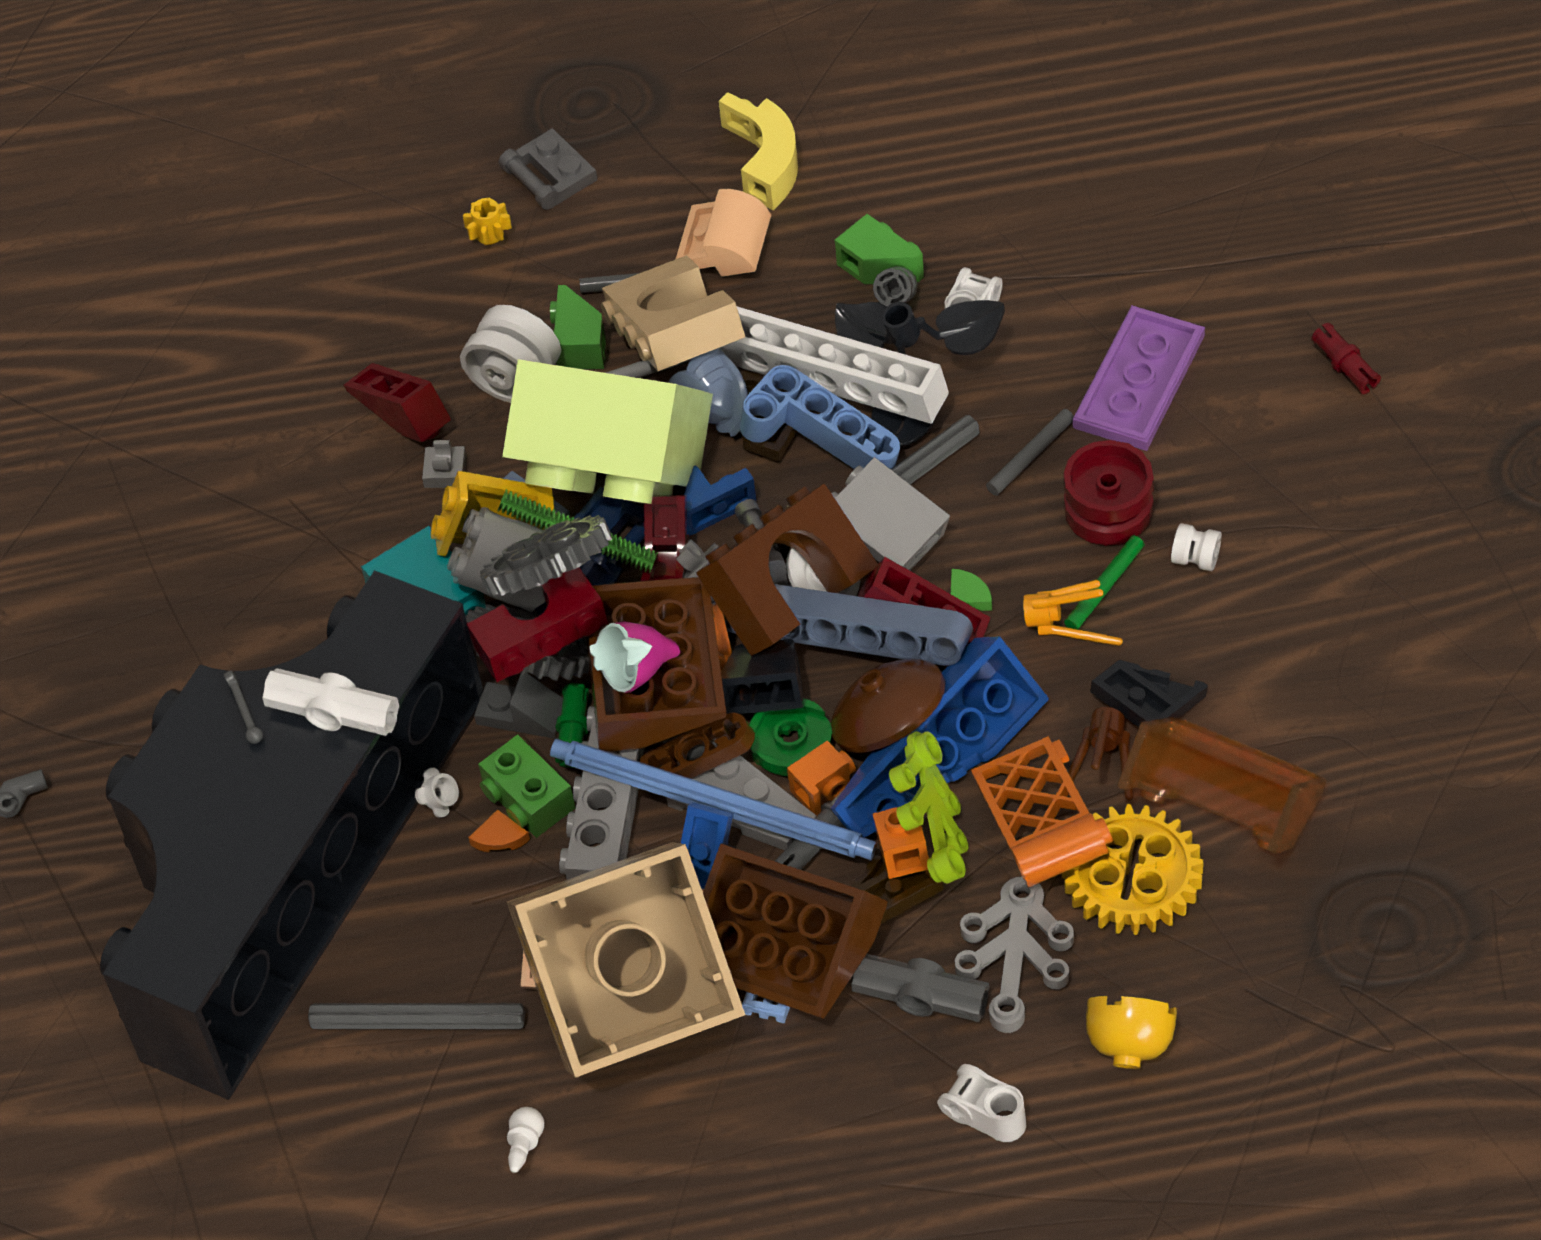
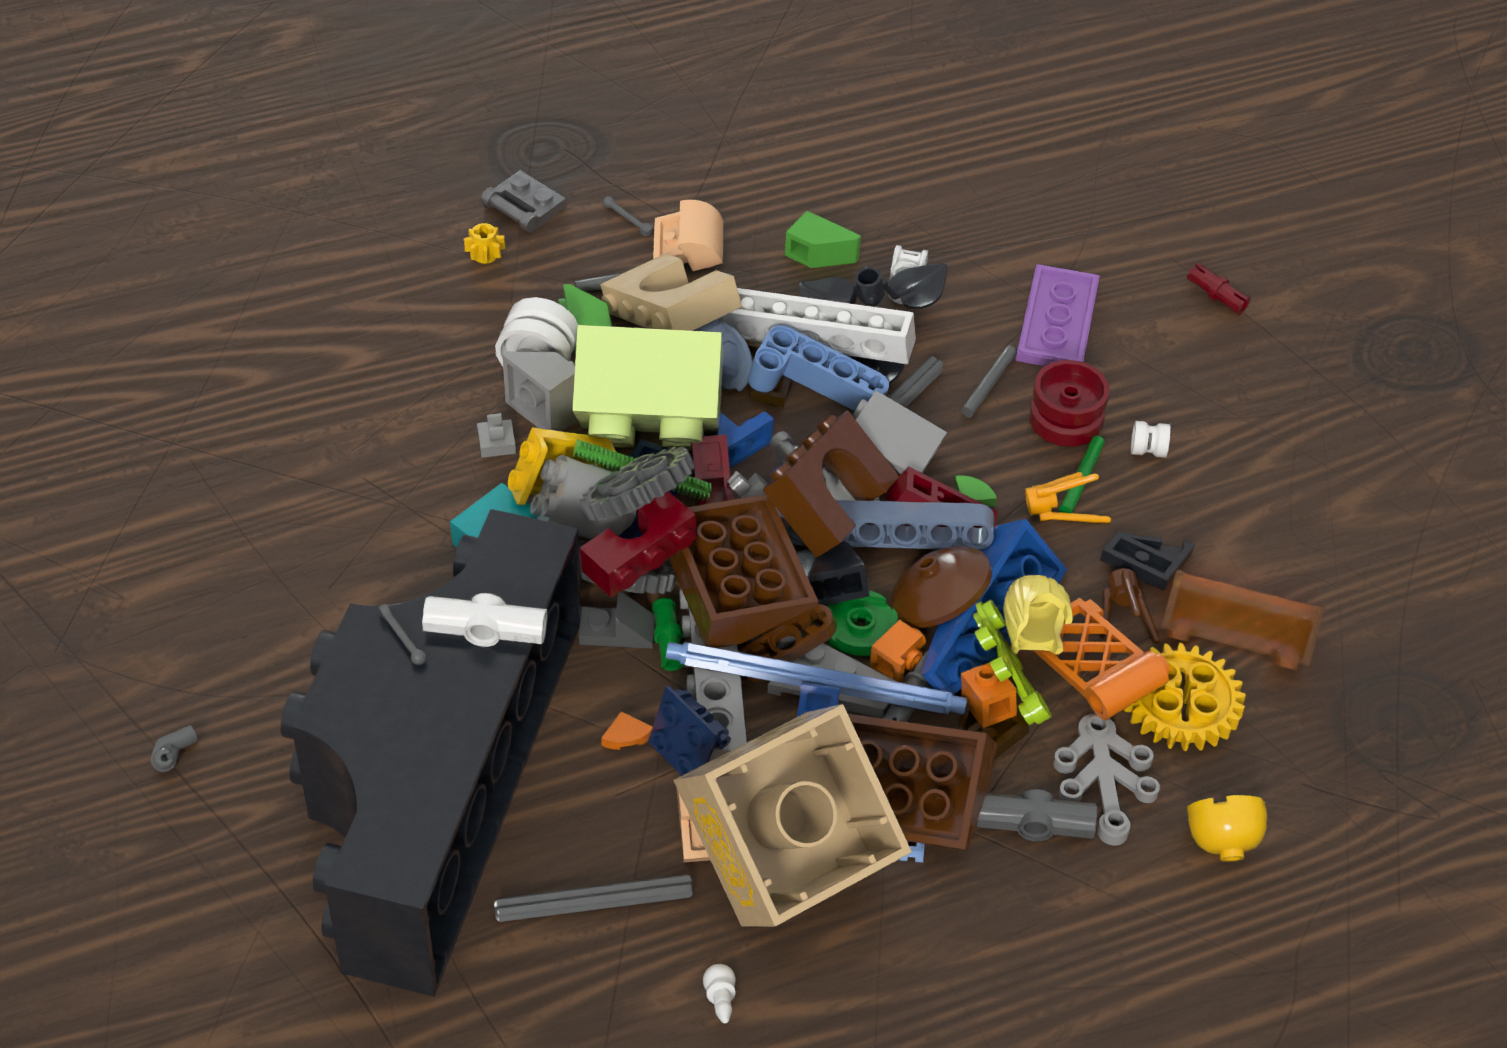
camera: 20 degrees left, 5 degrees down
(400, 400) = (449, 388): dark red slope -> none
(446, 791) = (564, 702): white plate -> none
(487, 409) = (540, 388): none -> light grey slope
(526, 786) = (636, 684): bright green brick -> none
(555, 840) = (686, 731): none -> dark blue hinge
(631, 654) = (728, 559): light aqua hat -> none
(681, 215) = (645, 228): none -> dark grey hinge
(775, 165) = (705, 160): light yellow arch -> none
(900, 282) = (844, 263): dark grey wheel -> none
(978, 1099) = (1122, 906): white piece -> none
(980, 753) = (1036, 614): none -> light yellow hair

